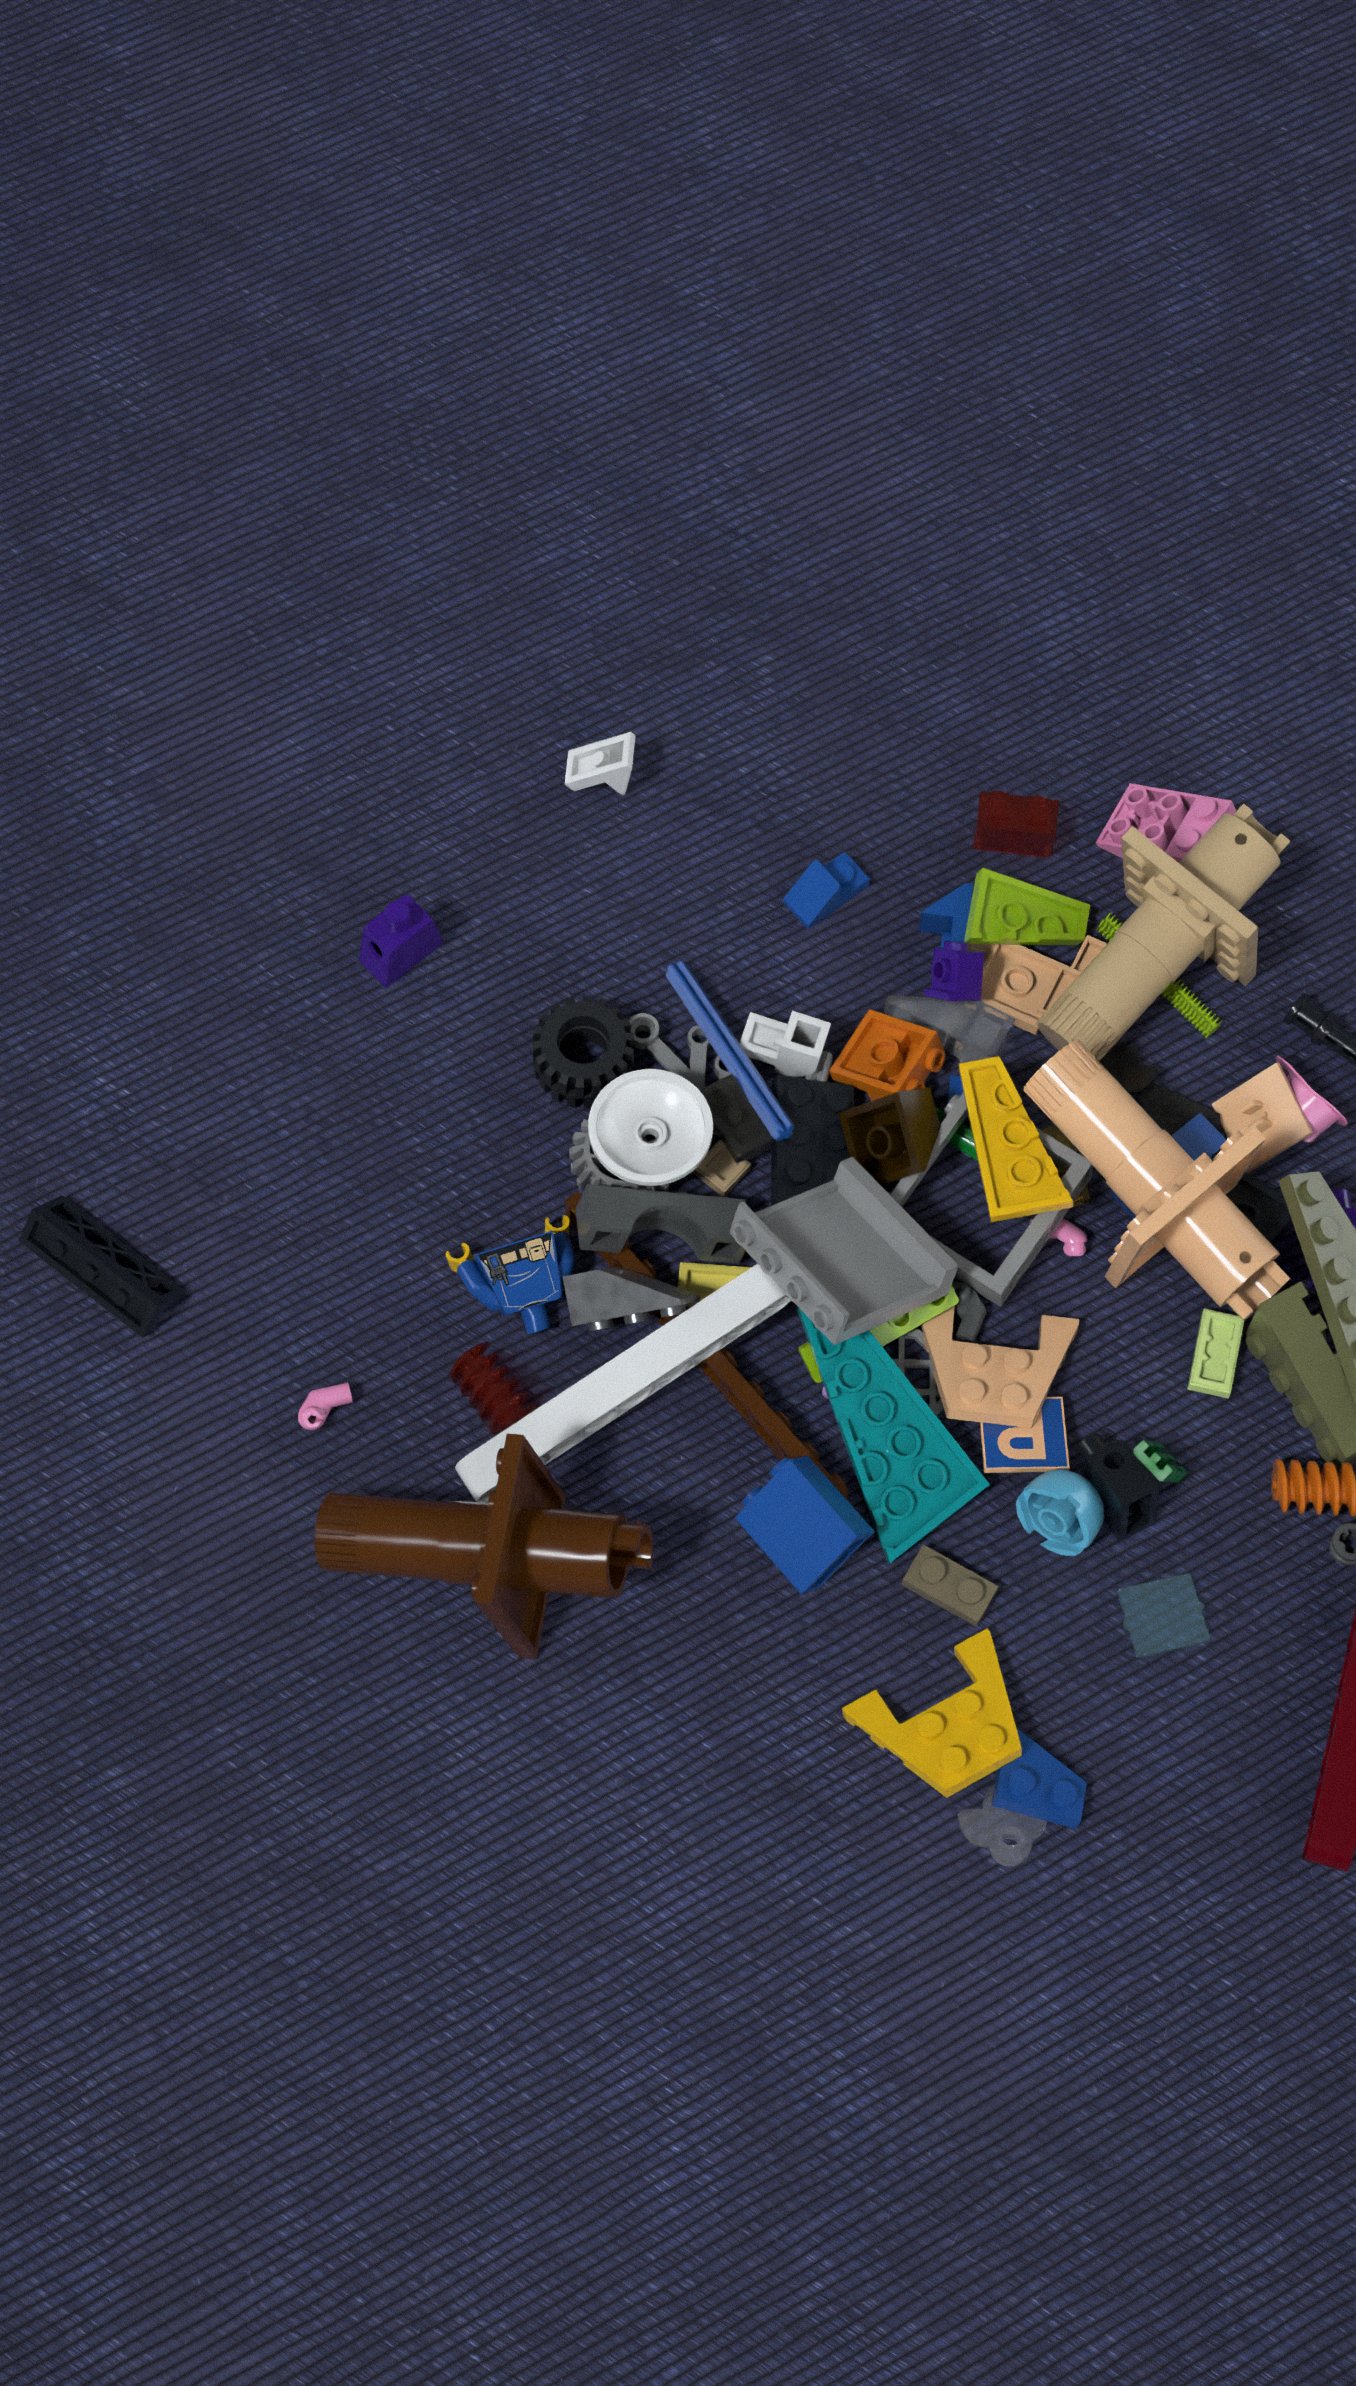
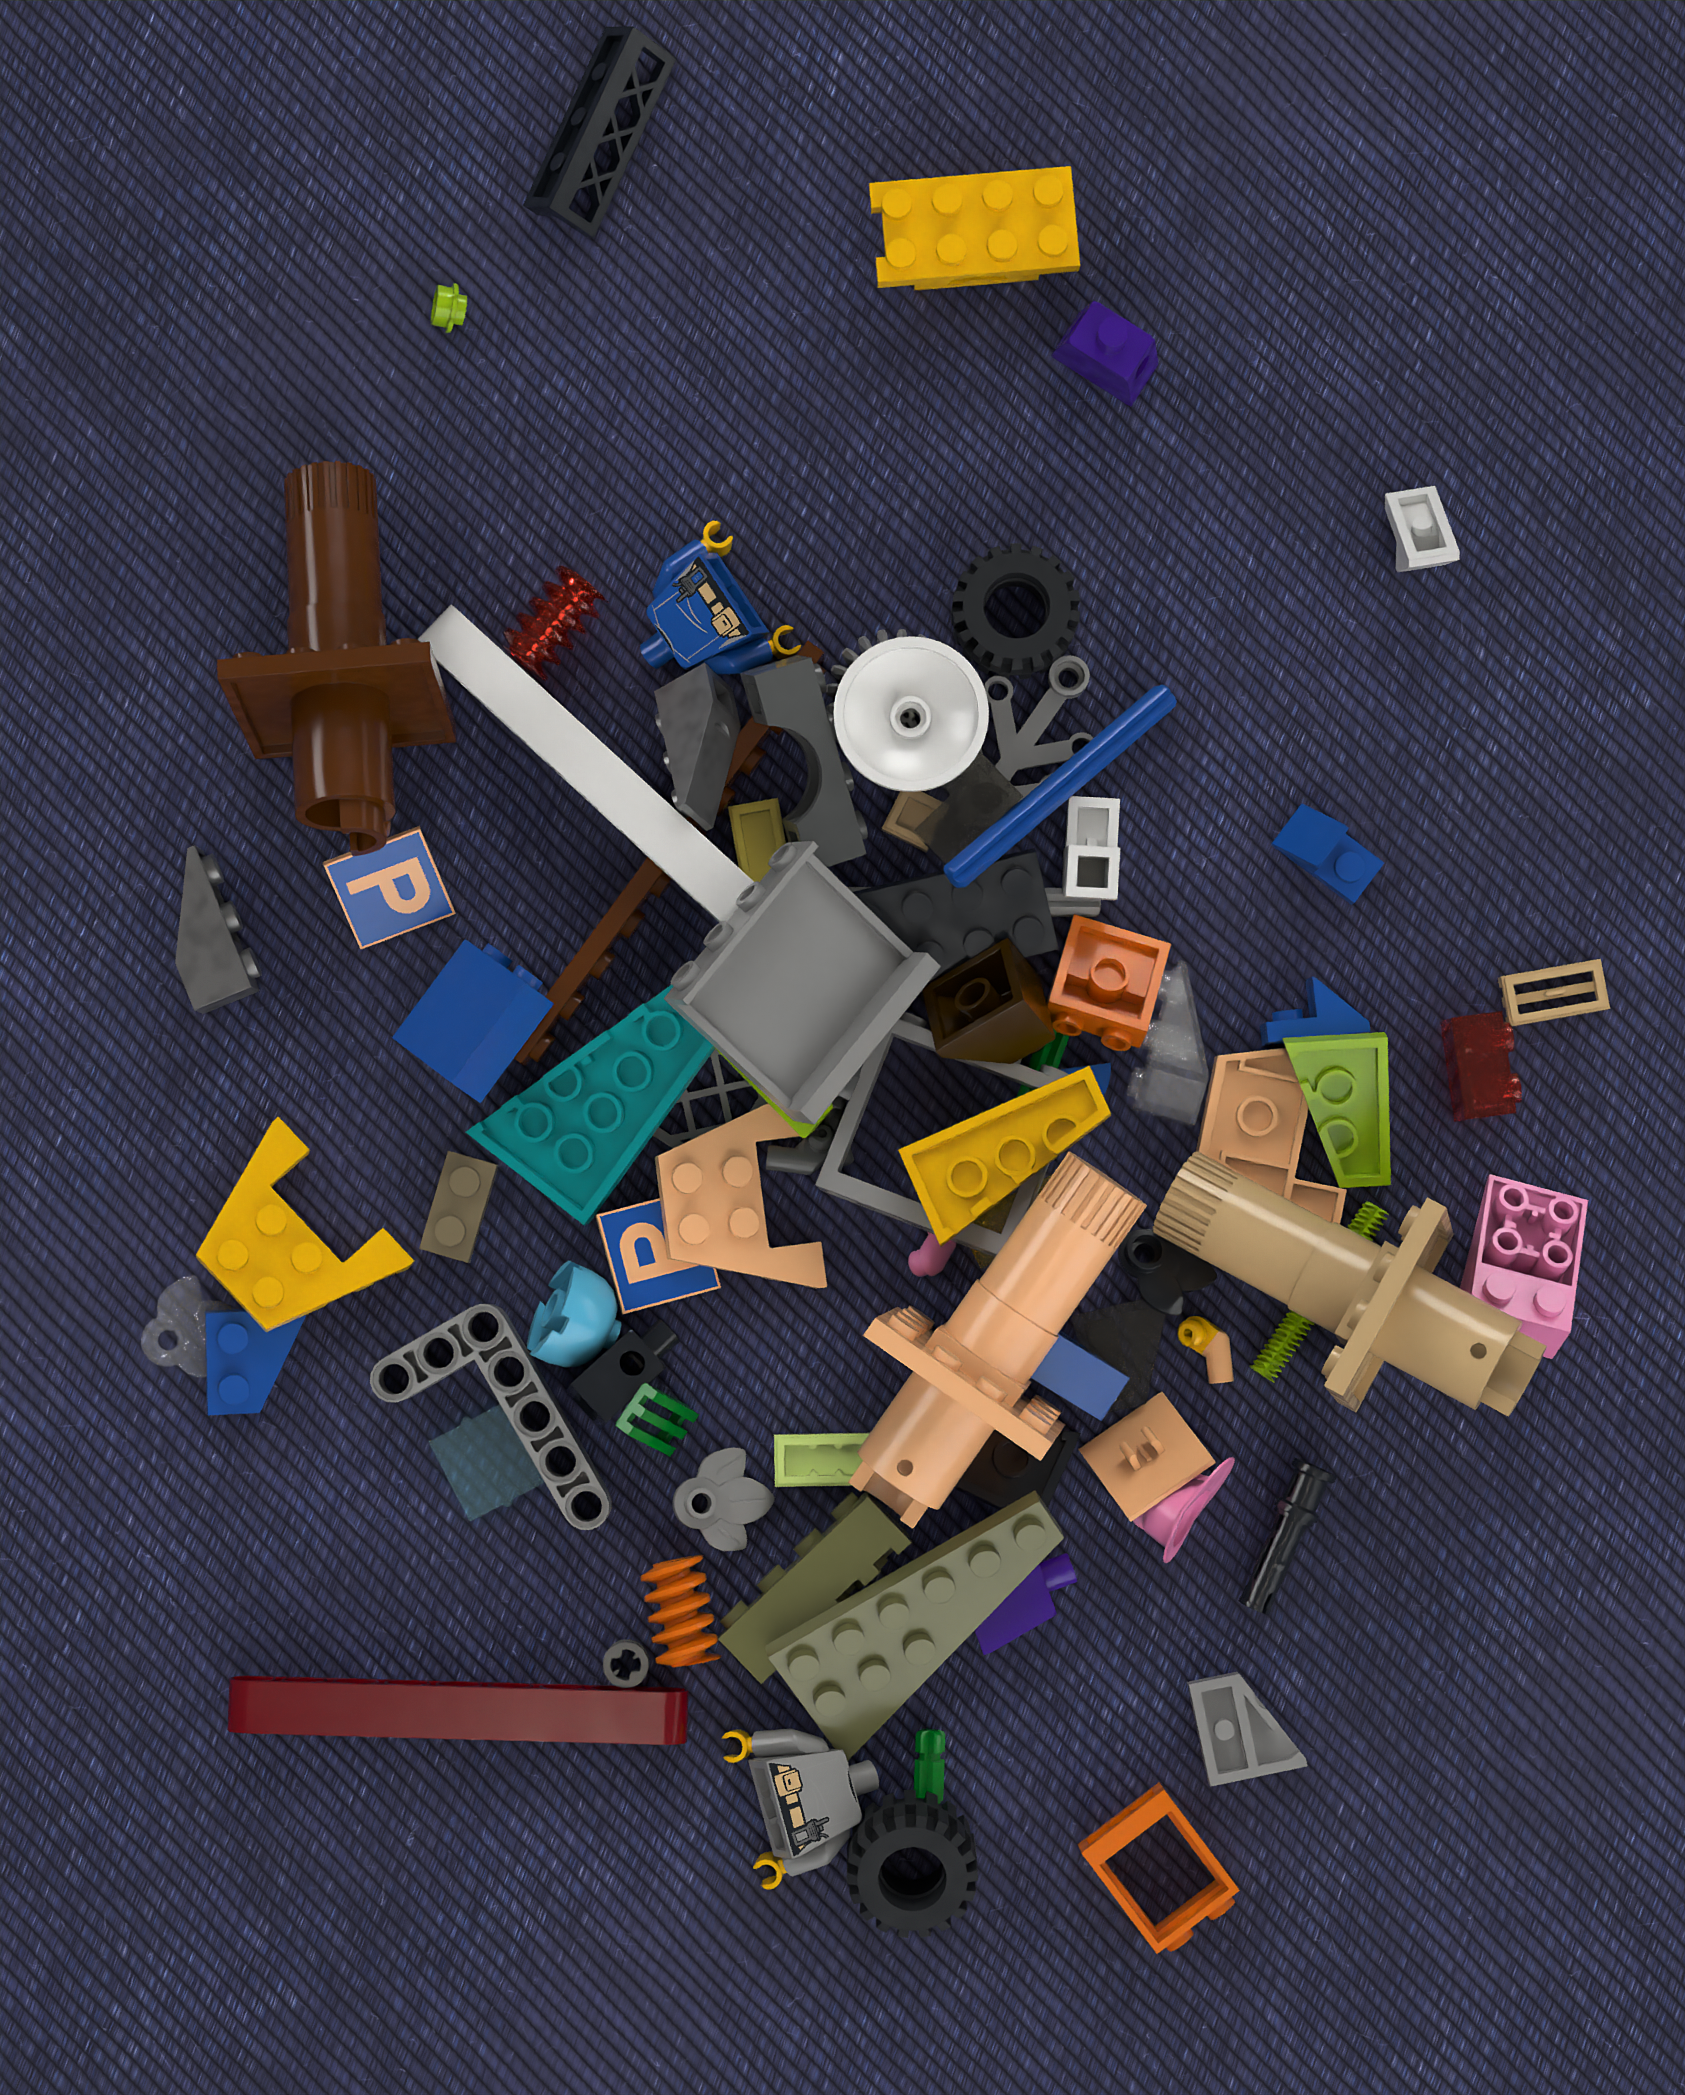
camera: 75 degrees right, 20 degrees up
(208, 1413) = (448, 307): none -> lime plate
(275, 1003) = (976, 228): none -> yellow piece
(319, 1404) = (494, 430): bright pink arm -> none
(680, 1572) = (390, 888): none -> blue piece
(687, 1727) = (207, 945): none -> flat silver slope
(956, 973) = (1230, 1037): dark purple brick -> none
(968, 794) = (1511, 1000): none -> tan tile
(1119, 1575) = (512, 1399): none -> light grey beam
(1184, 1057) = (1211, 1343): none -> arm
(1232, 1434) = (729, 1496): none -> light grey plate

